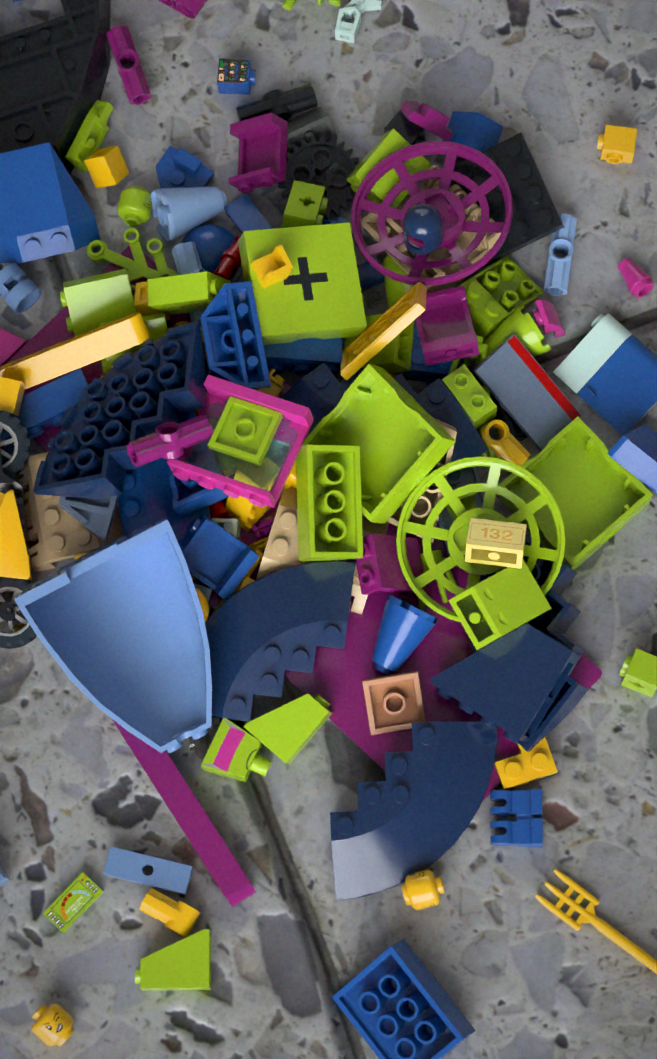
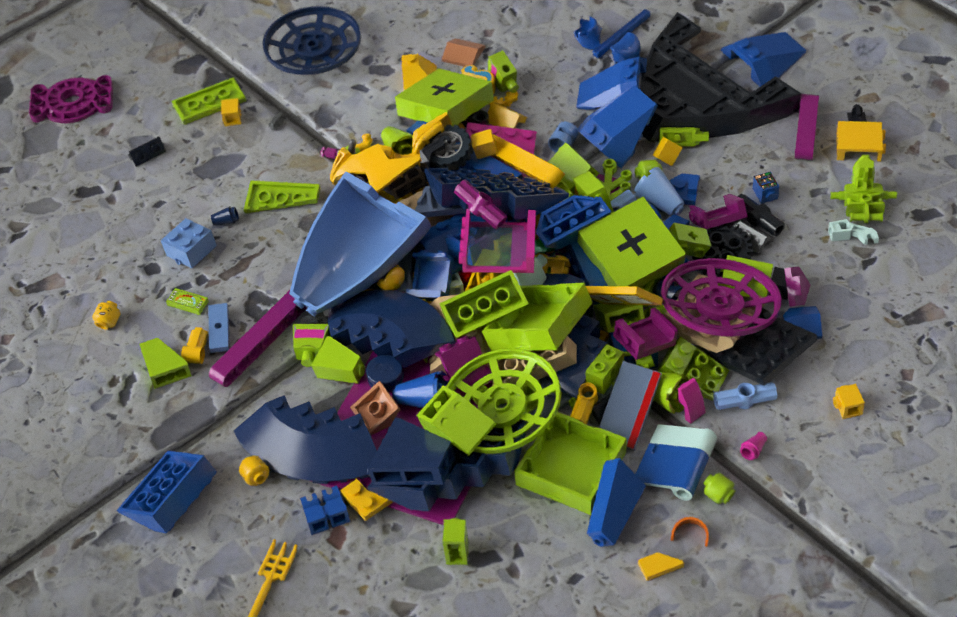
camera: 70 degrees right, 25 degrees down
(132, 77) = (740, 137): magenta piece -> none
(245, 430) = (506, 239): lime plate -> none
(272, 267) = (625, 217): yellow panel -> none
(339, 672) = (385, 369): none -> dark blue head
(423, 223) = (701, 286): dark blue helmet -> none
(495, 543) = (496, 398): light yellow brick -> none

